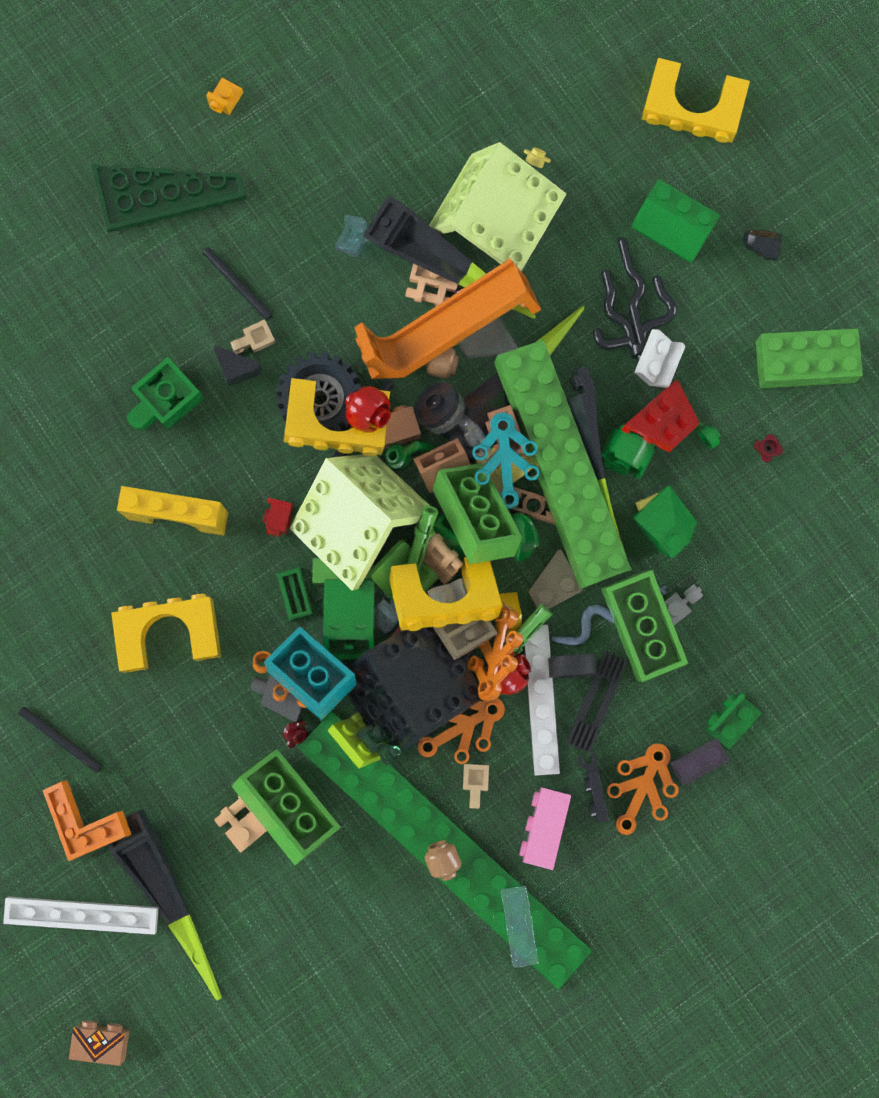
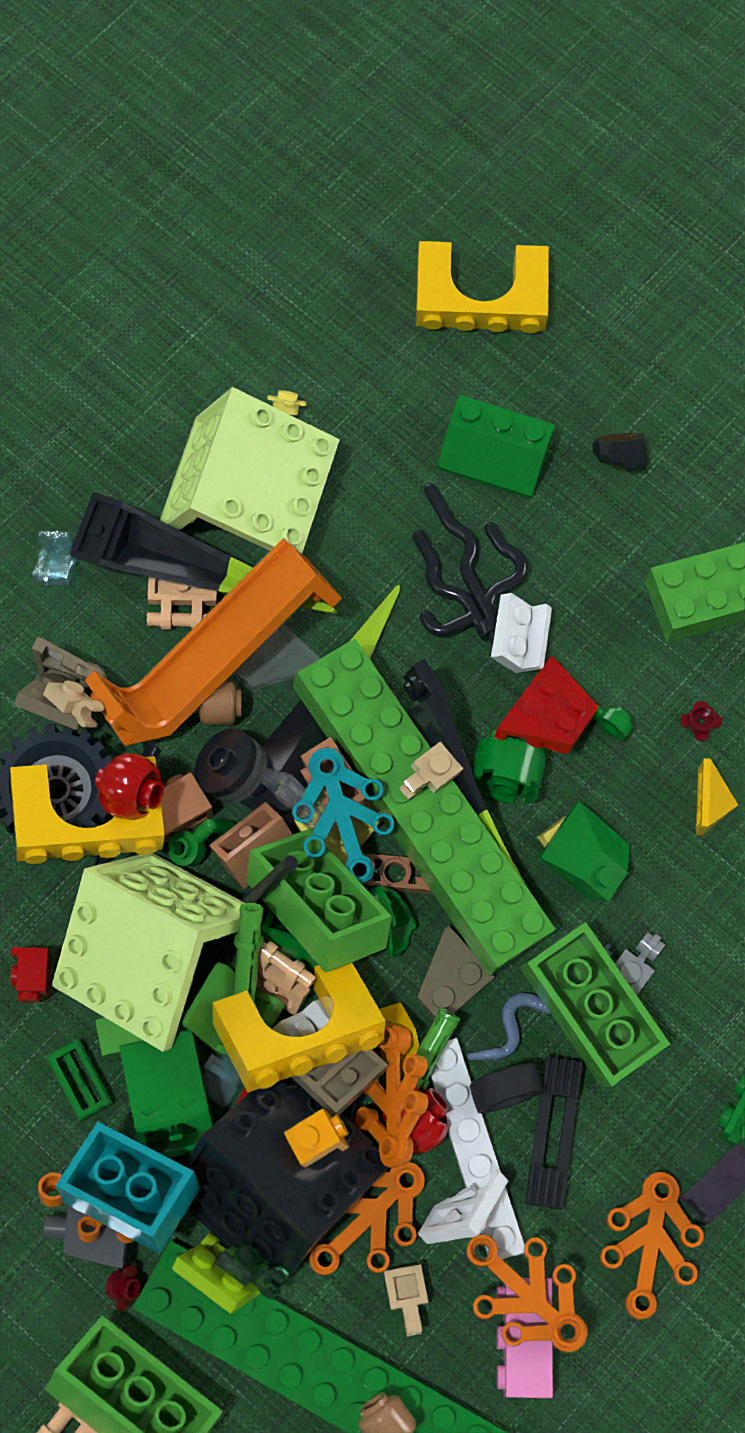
camera: 20 degrees left, 10 degrees down
(330, 335) = (33, 700): none -> dark tan wing
(342, 313) = (56, 660): none -> dark tan wing
(342, 339) = (71, 698): none -> tan plate
(439, 670) = (317, 1137): none -> light orange bracket
(447, 494) = (271, 880): none -> black bar
(524, 740) = (464, 1213): none -> white wing
(554, 804) = (531, 1297): none -> orange plant
(574, 443) = (432, 770): none -> tan plate
(593, 785) = (580, 1257): black plate -> none
(762, 504) = (713, 797): none -> yellow slope

